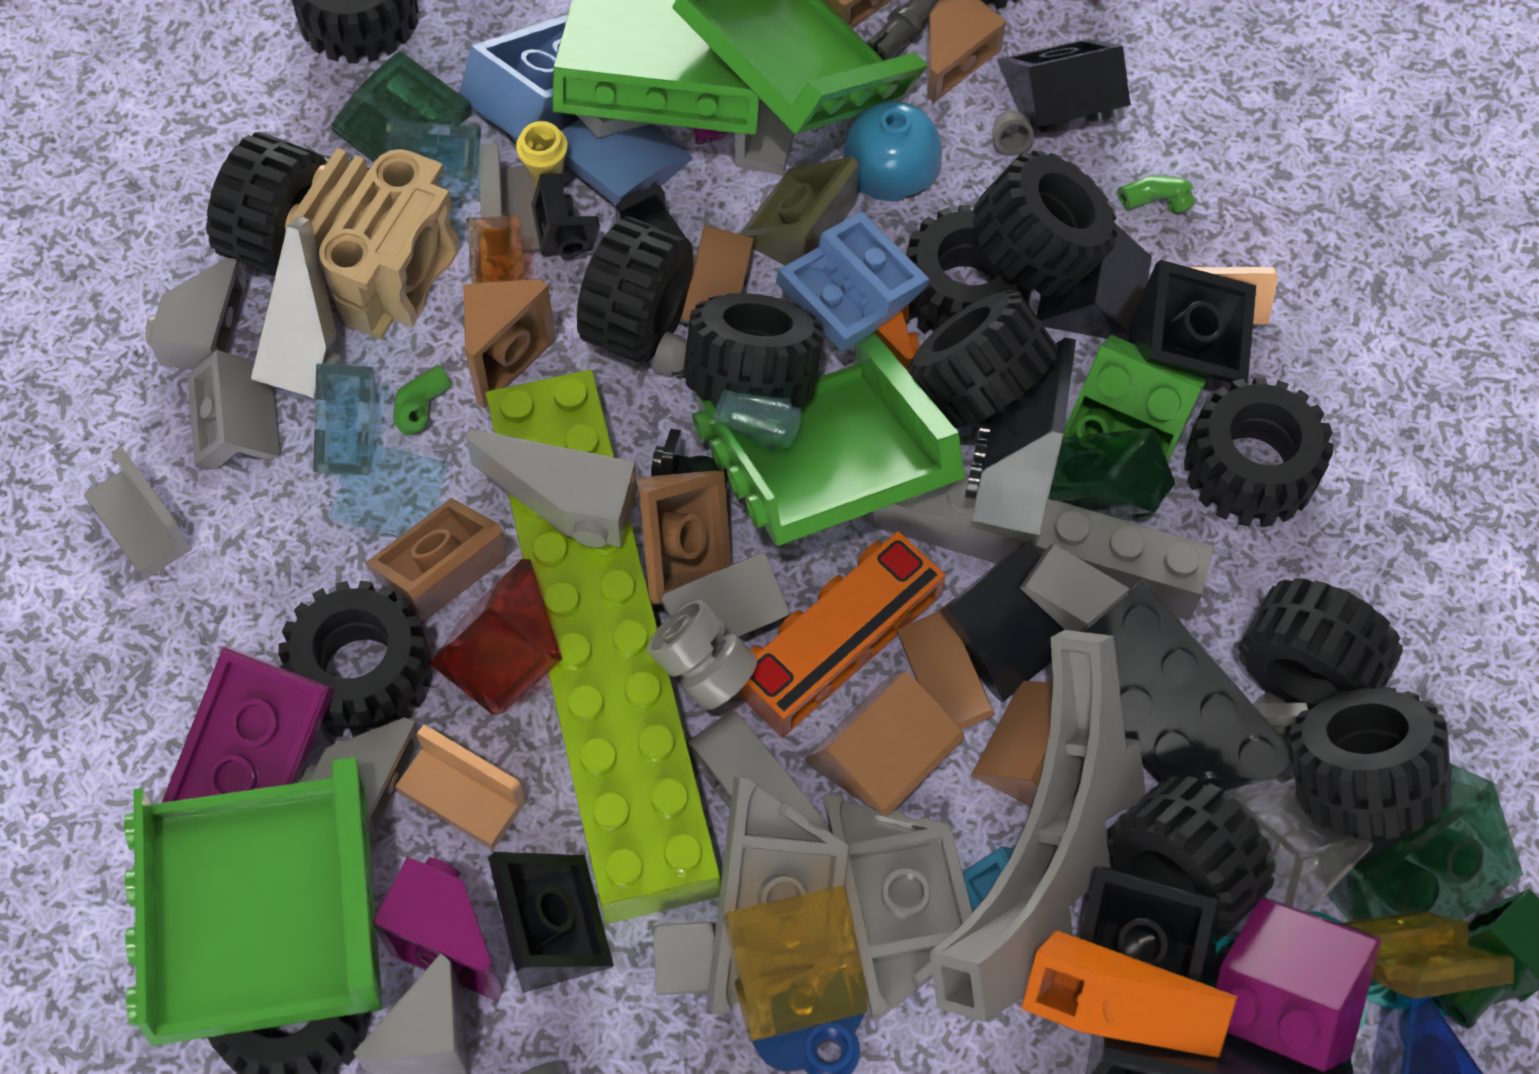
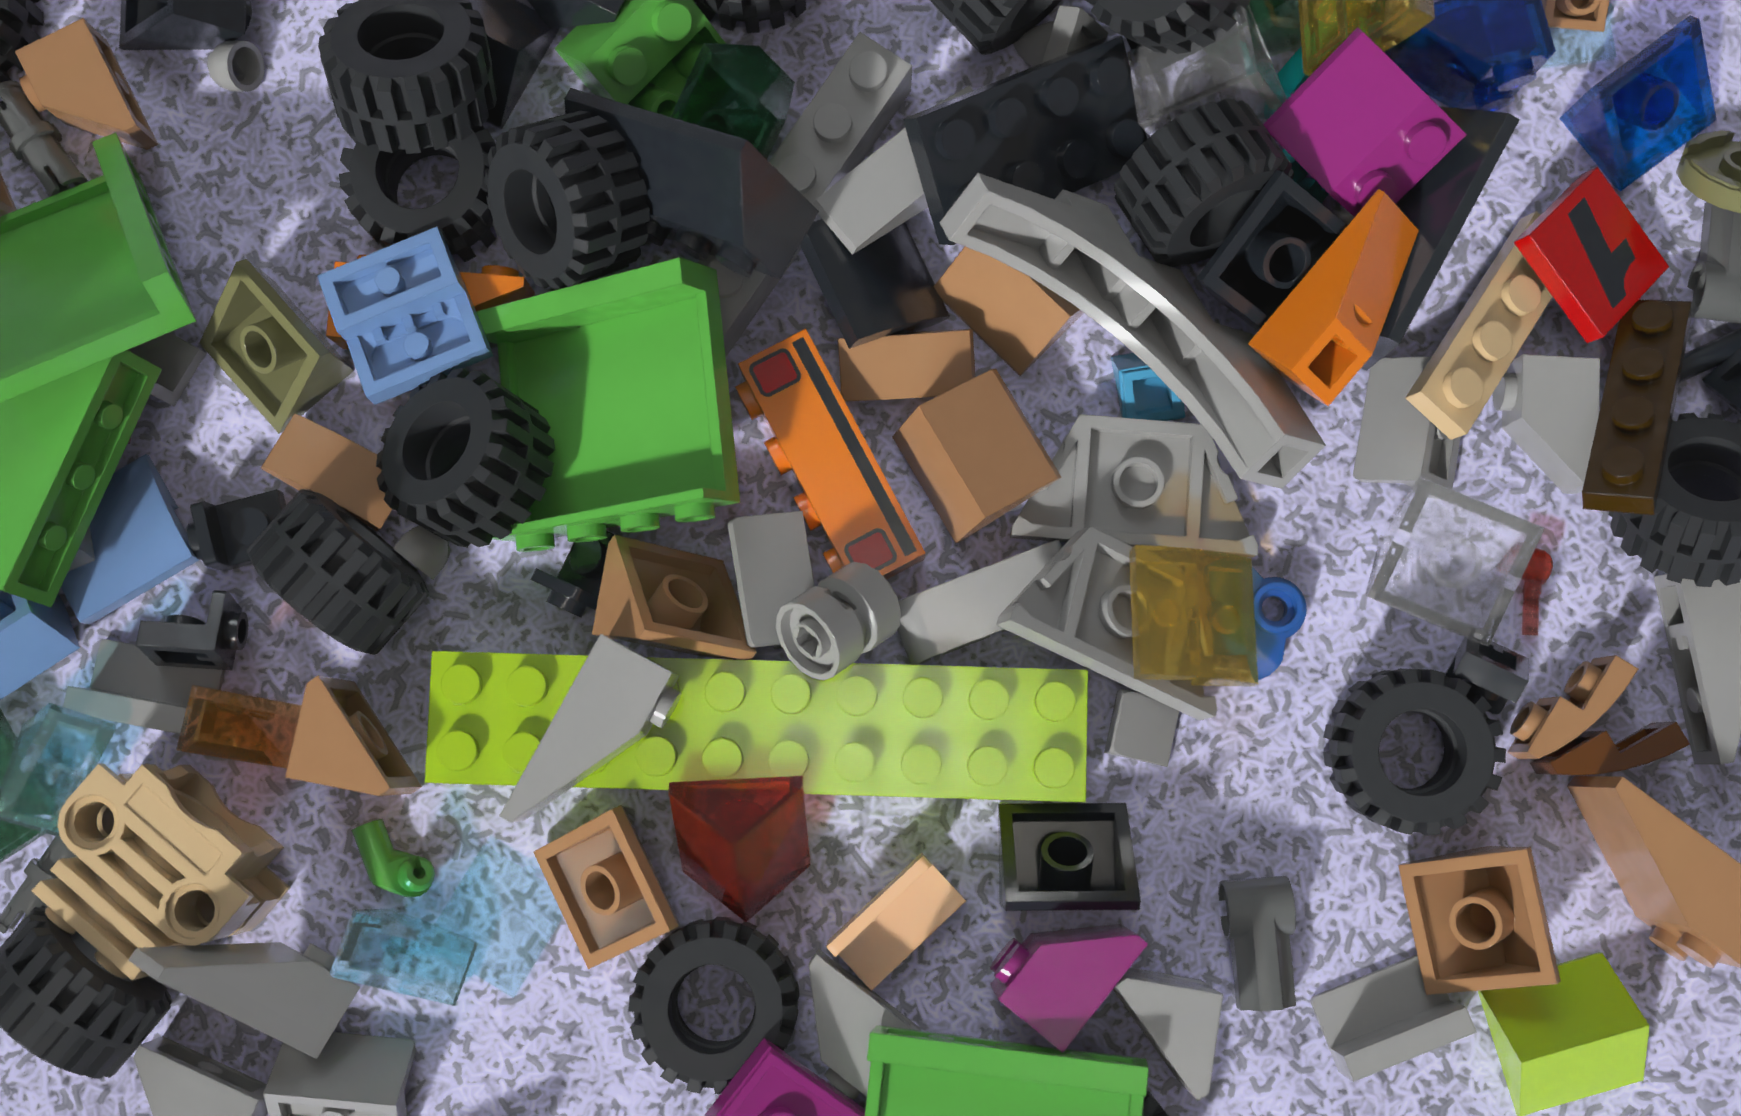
camera: 70 degrees left, 20 degrees up
(542, 149) = (99, 633): light yellow cone -> none
(761, 418) = (566, 473): clear light blue cone -> none
(895, 150) = (219, 213): dark azure cylinder -> none

